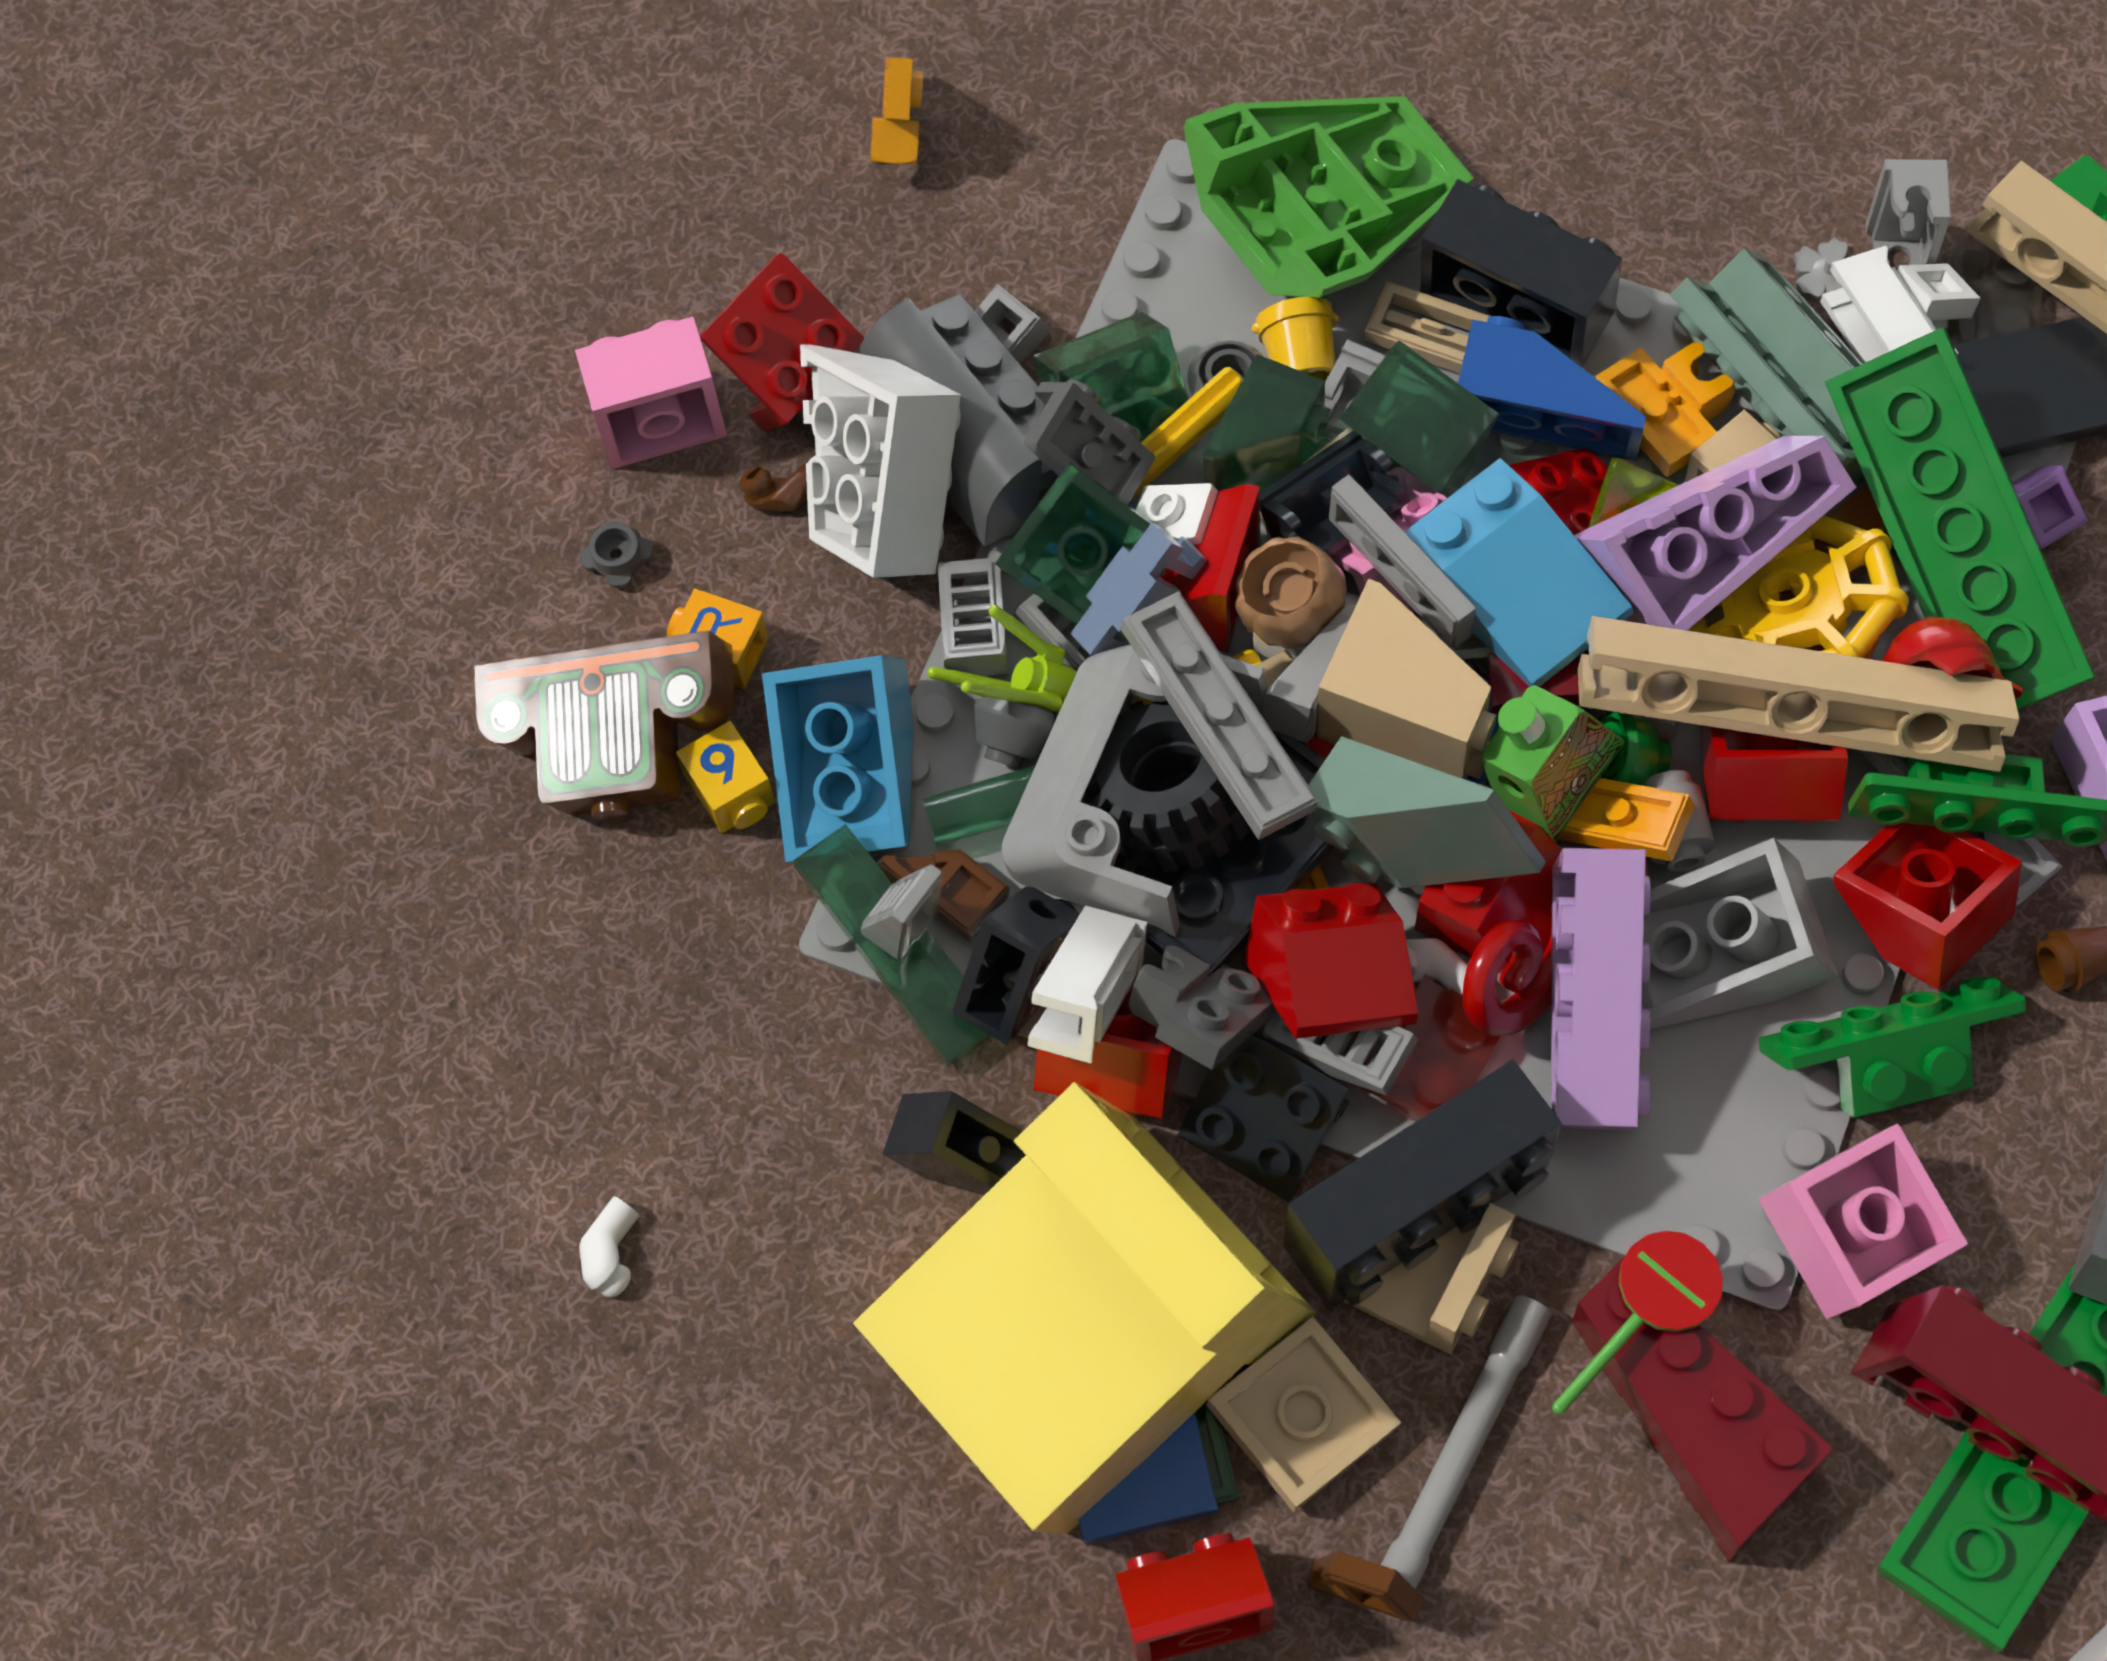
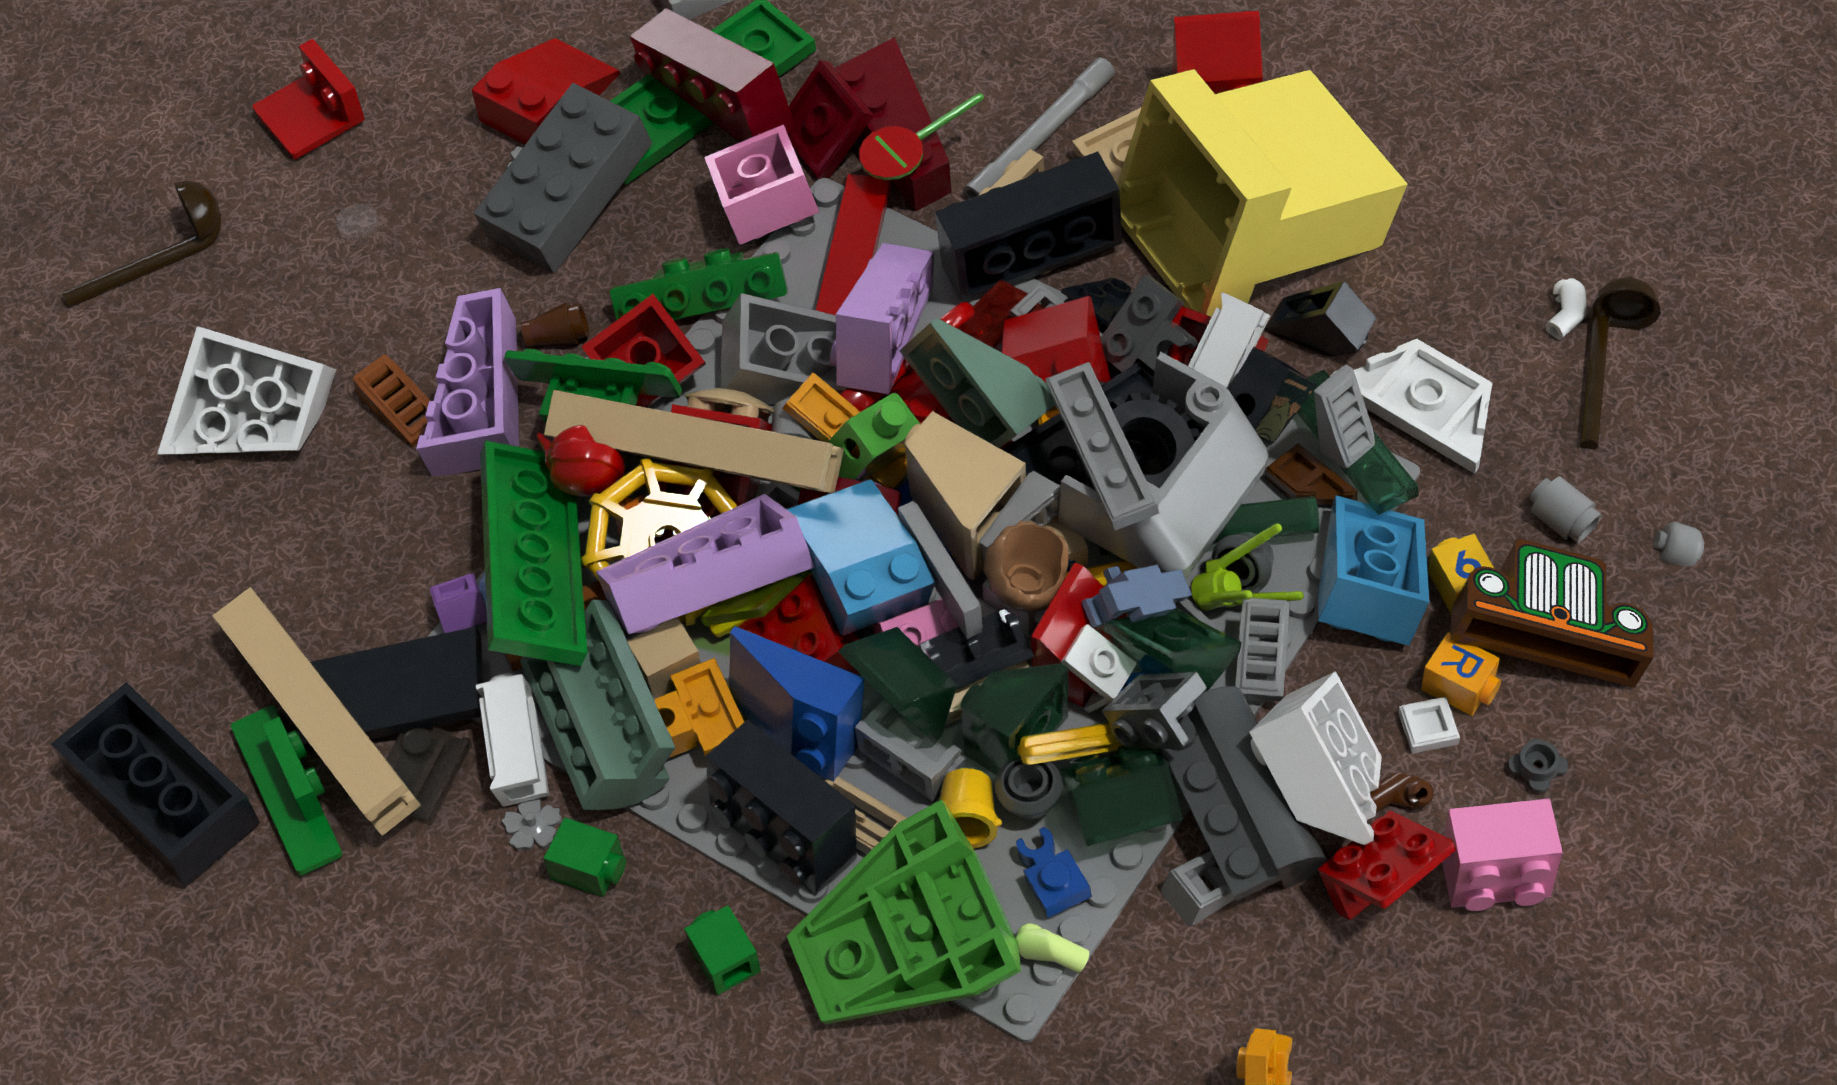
camera: 170 degrees left, 10 degrees down
(445, 897) = (1679, 544): none -> light grey piece
(533, 1242) = (1619, 304): none -> dark brown piece
(597, 902) = (1564, 509): none -> light grey brick
(755, 581) = (1429, 725): none -> white tile
(802, 1051) = (1429, 399): none -> white wing
(1164, 209) = (1044, 945): none -> yellowish green arm
(1180, 300) = (1052, 877): none -> blue plate
(1365, 1585) = (1117, 58): reddish brown tile -> none
(1544, 153) = (722, 949): none -> green brick
(1687, 1139) = (854, 238): none -> red tile
(1742, 218) = (585, 857): none -> green brick
(1782, 806) = (729, 400): none -> tan dish
(1805, 1378) = (826, 119): none -> dark red tile
(1911, 208) = (455, 816): light grey hinge -> none
(1940, 292) = (463, 764): white tile -> none

